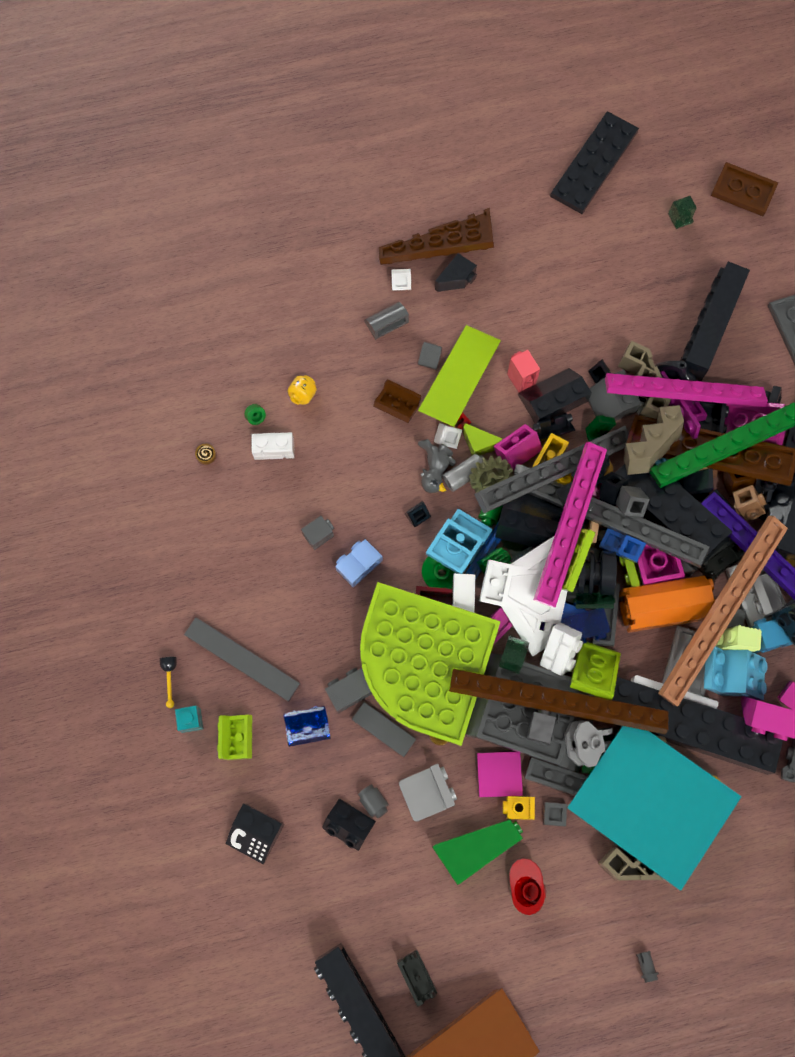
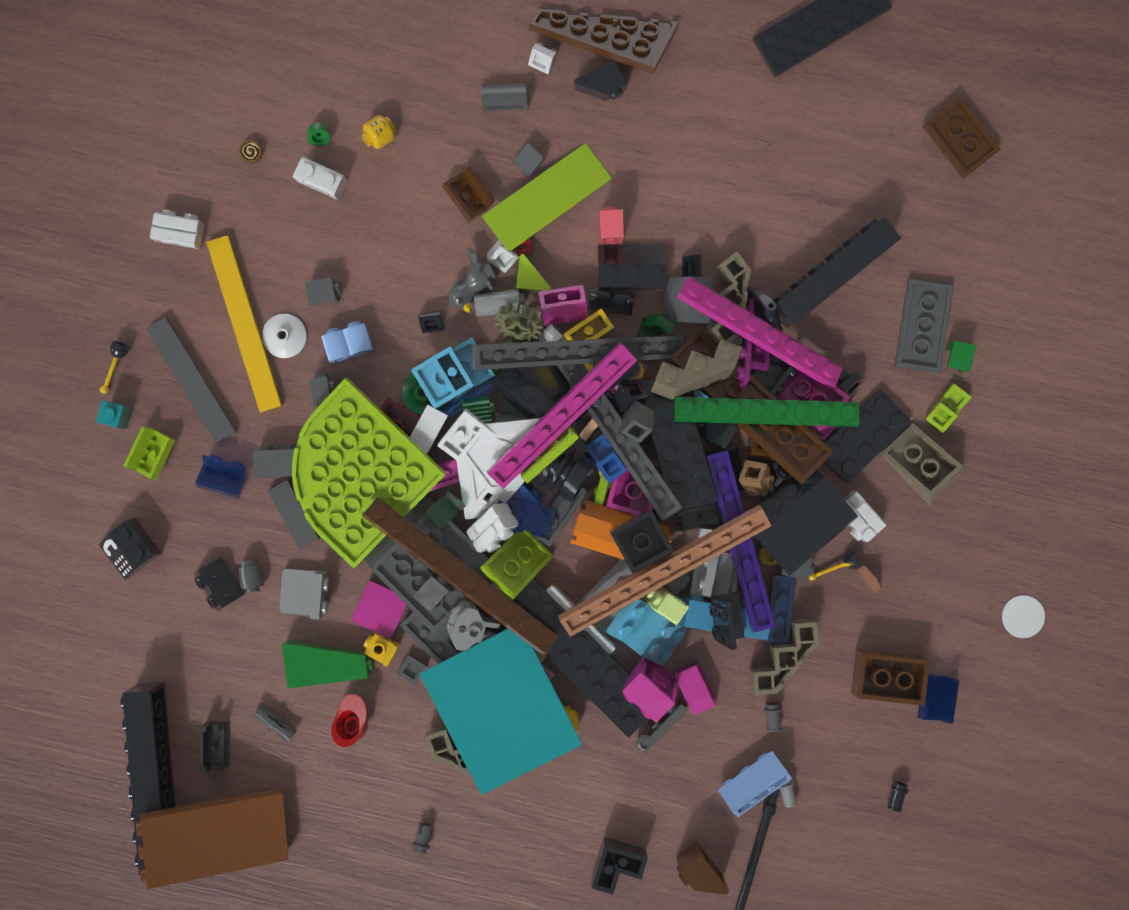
camera: 25 degrees right, 15 degrees up
(174, 541) = (177, 230): none -> white brick
(265, 592) = (244, 323): none -> yellow tile
(309, 592) = (294, 340): none -> white dish
(356, 610) = (321, 387): none -> dark grey brick
(460, 927) = (274, 723): none -> dark grey pin
(595, 600) = (549, 498): clear green piece -> none
(682, 212) = (879, 131): clear green brick -> none
(692, 591) = (641, 540): none -> black brick

